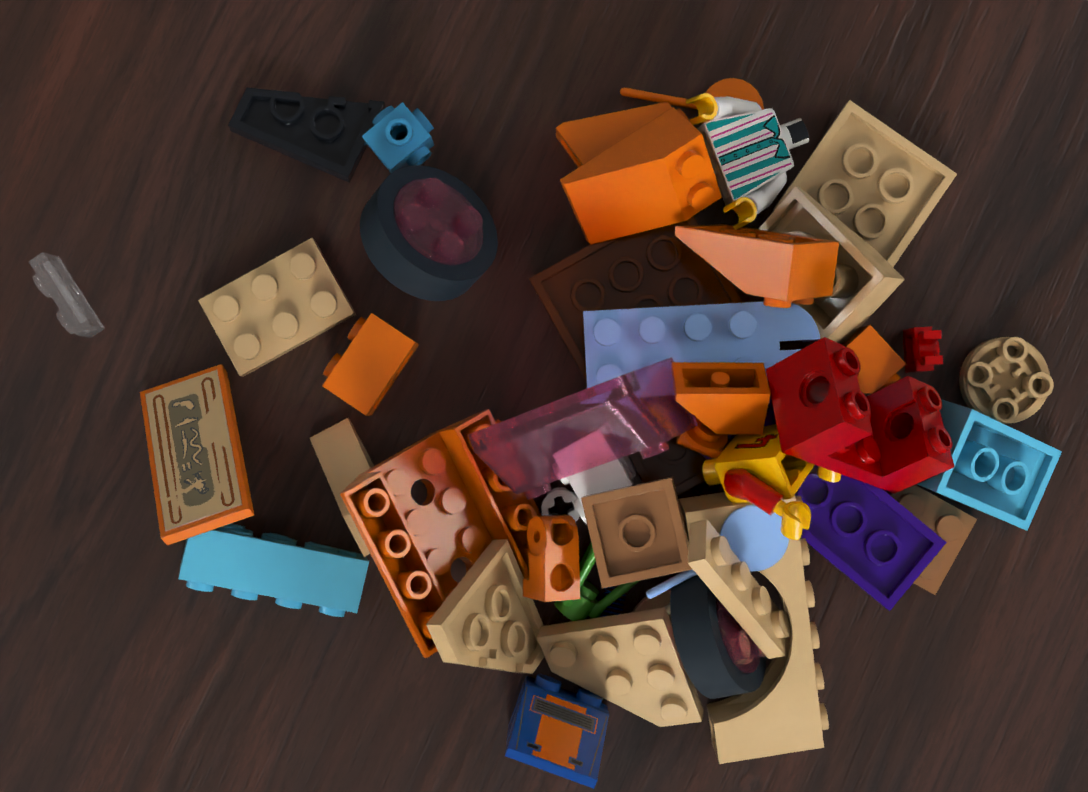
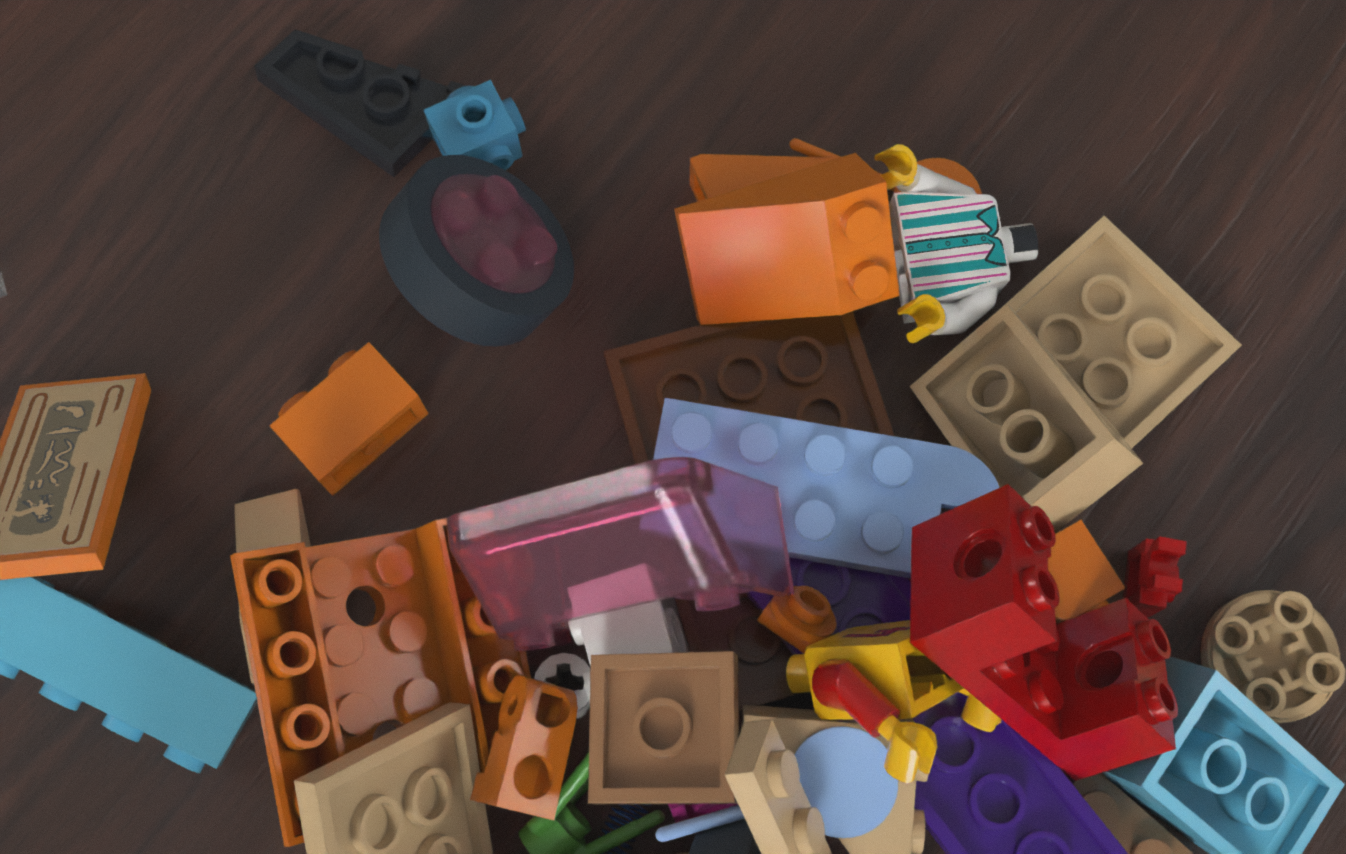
camera: 15 degrees right, 15 degrees down
(277, 307) = (246, 318): tan plate -> none
(723, 394) = (841, 554): orange slope -> none
(767, 262) = (955, 385): orange slope -> none

